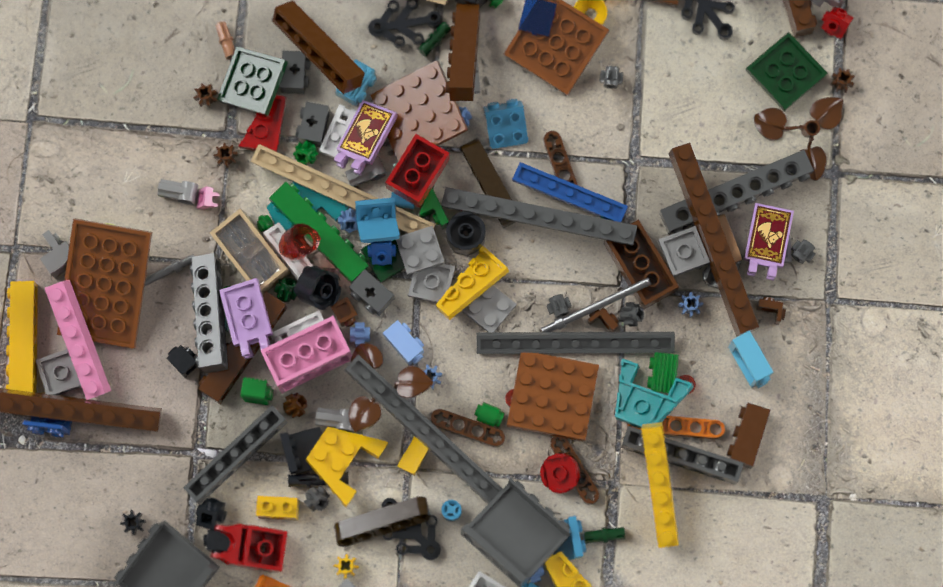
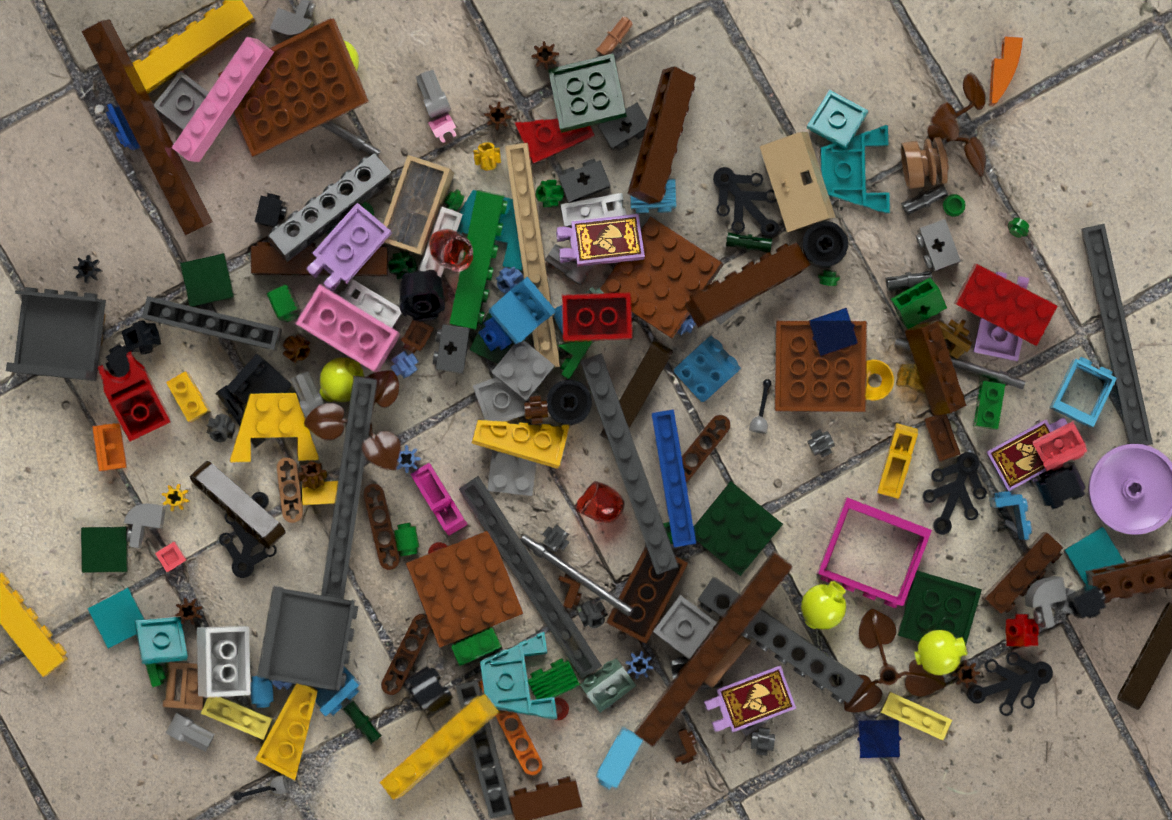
camera: 55 degrees right, 10 degrees up
(201, 439) = (207, 280): none -> dark green tile
(249, 180) = (487, 156): none -> yellow gear
(339, 387) = (337, 379): none -> neon yellow brick
(396, 453) = (312, 475): none -> reddish brown gear
(408, 347) = (422, 416): light blue brick -> none
(412, 480) = (297, 506): none -> medium nougat beam
(450, 507) = (289, 563): dark azure wheel -> none
(455, 259) = (536, 409): none -> reddish brown gear
(475, 372) = (439, 499): none -> dark pink slope
(556, 253) = (605, 503): none -> clear red piece
(560, 473) = (393, 643): red tile -> none
(569, 112) = (758, 423): none -> hinge
(601, 413) = (476, 646): none -> green brick
(613, 468) = (428, 691): none -> black brick
(634, 175) = (735, 528): none -> dark green plate
(658, 33) = (897, 460): none -> yellow slope
(691, 336) = (607, 684): none -> sand green bracket
(696, 64) = (868, 591): none -> dark pink window
(731, 146) = (824, 606): none -> neon yellow brick
(816, 85) = (940, 652): none -> neon yellow brick
(851, 133) = (916, 716): none -> light yellow plate
(852, 170) = (879, 738): none -> clear blue piece
(869, 51) = (1014, 682): none -> black plant

